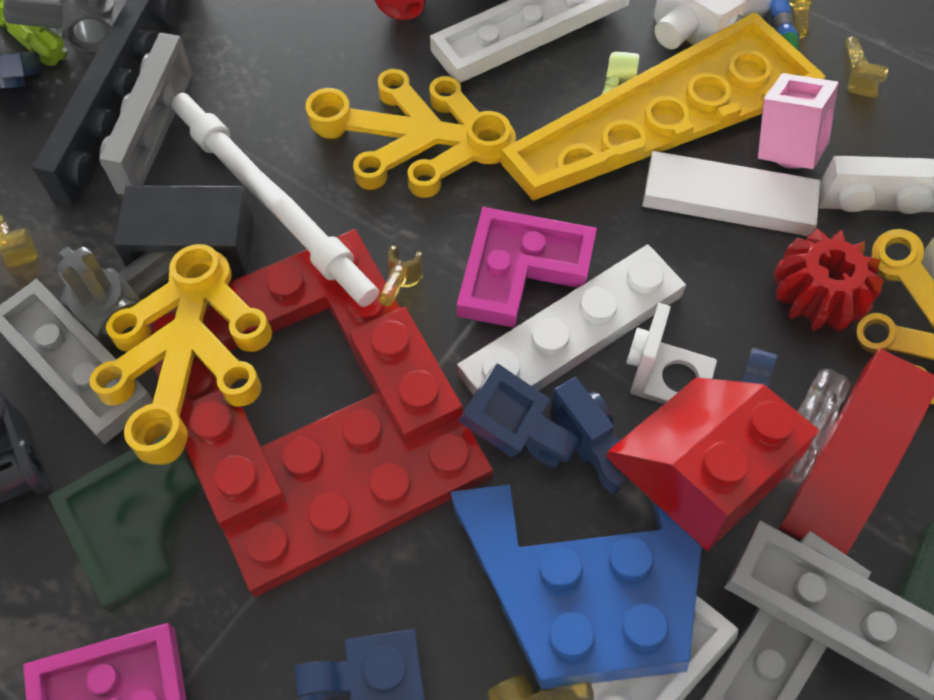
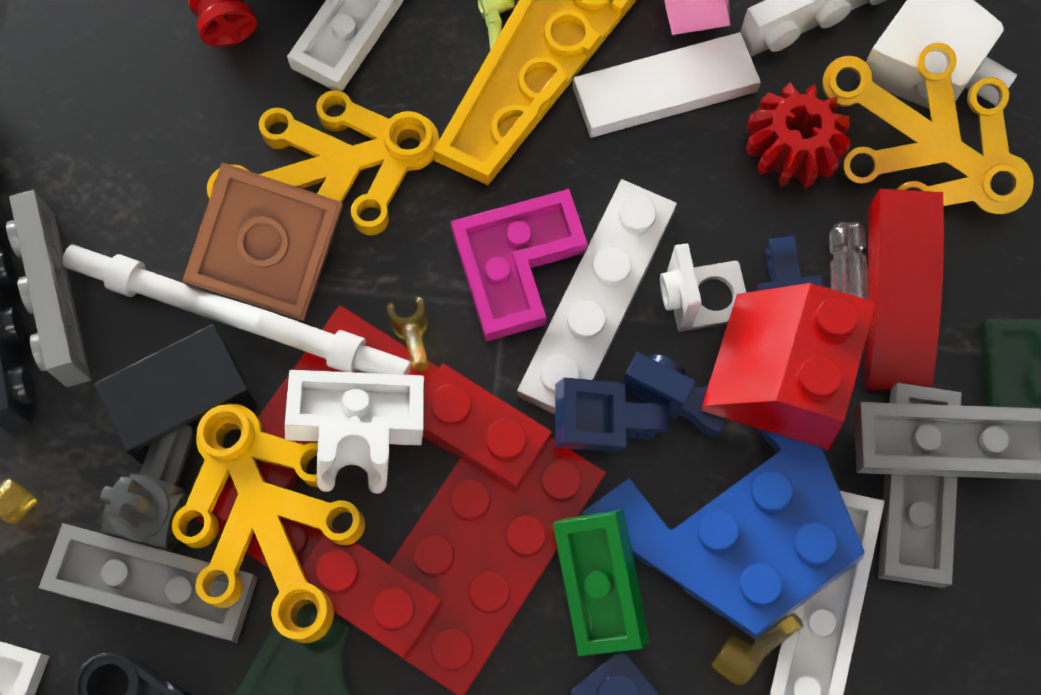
camera: 30 degrees left, 10 degrees up
(296, 304) = (354, 419): none -> white plate
(325, 154) = (263, 242): none -> nougat tile
(428, 558) = (601, 583): none -> green plate

